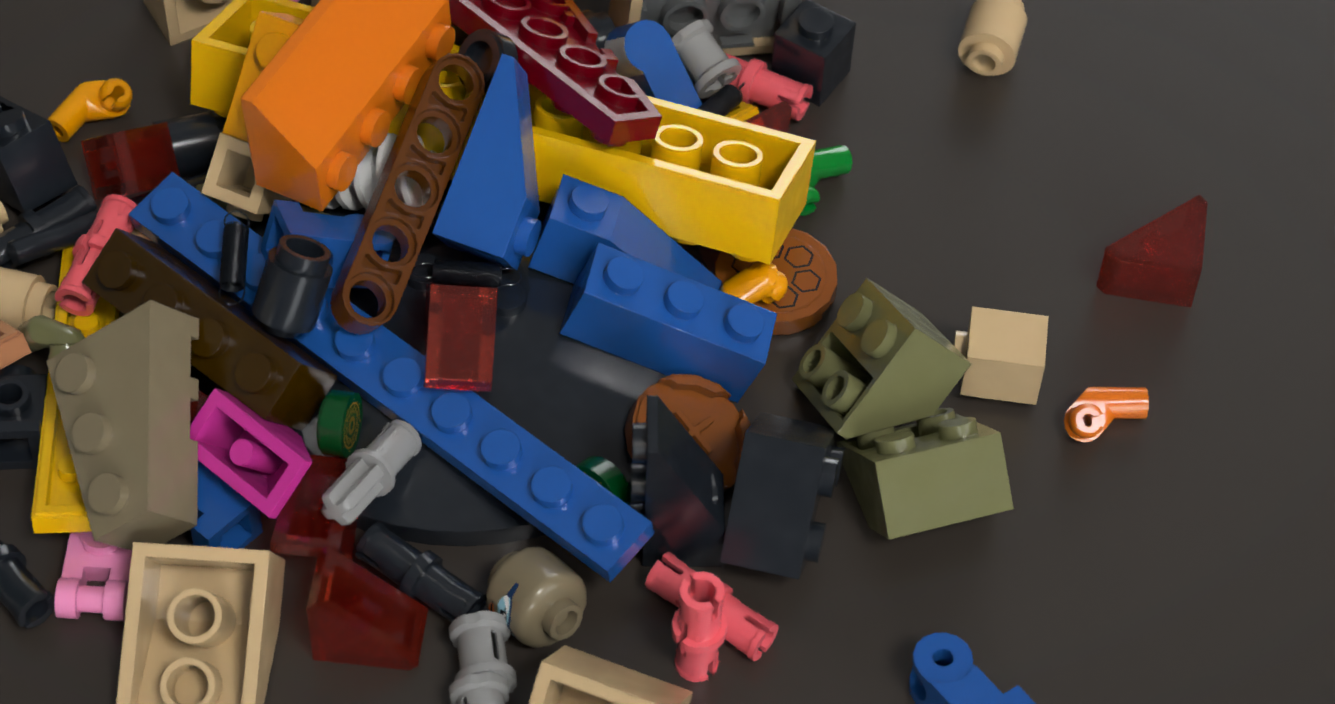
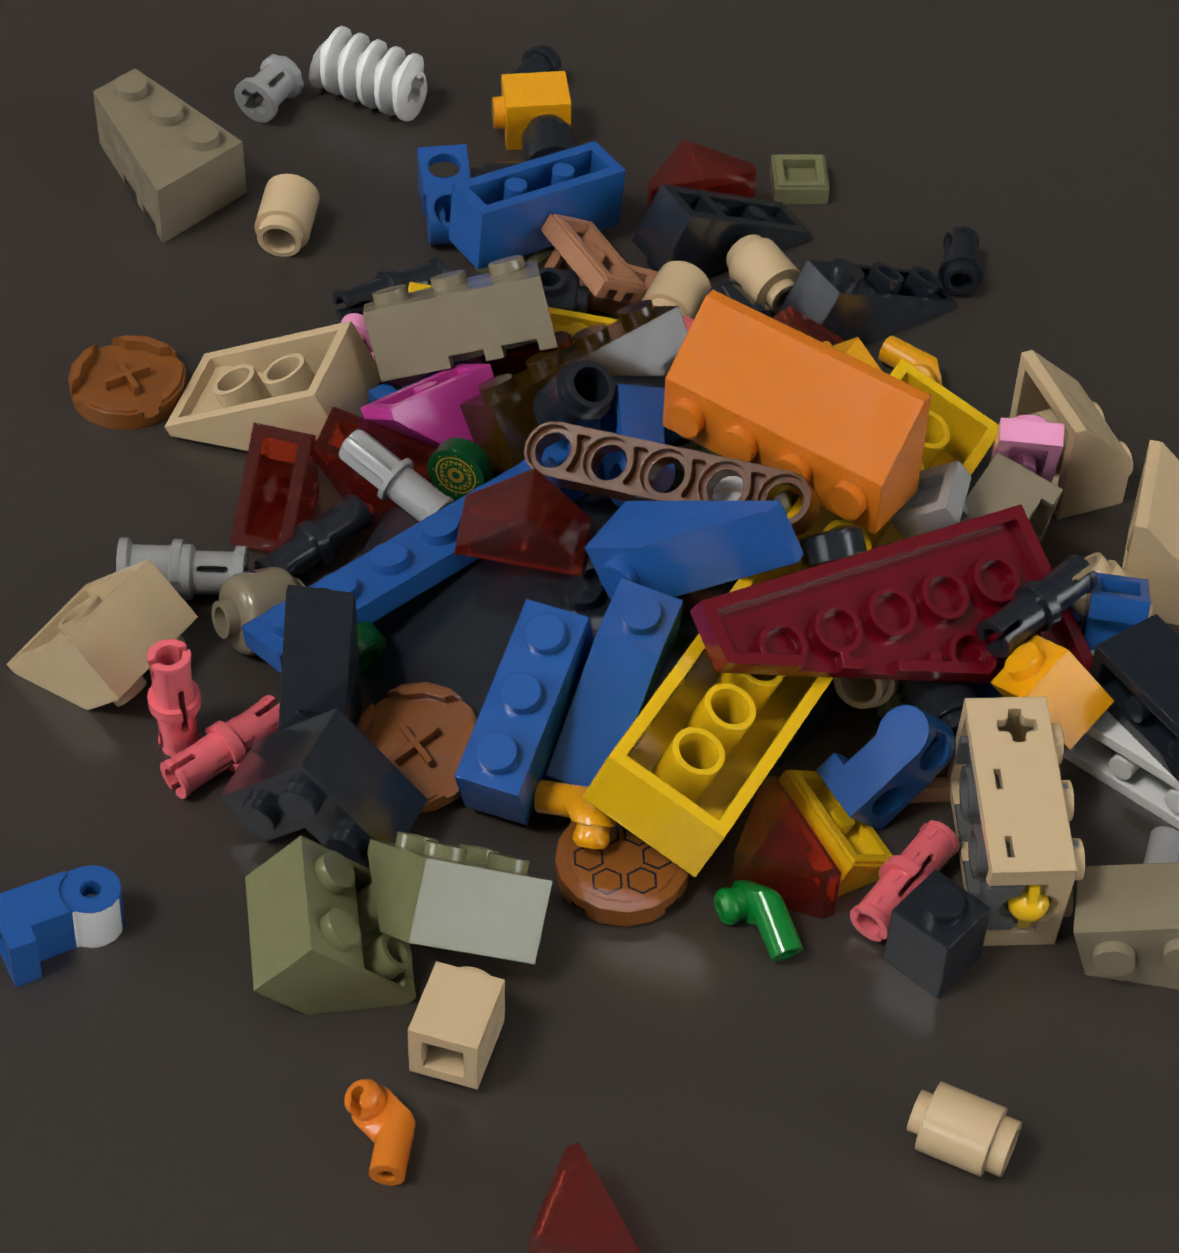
camera: 100 degrees right, 5 degrees down
(49, 333) = (597, 302): olive arm -> none
(705, 58) = (909, 806): light grey bush -> none
(724, 100) = (846, 820): black piece -> none

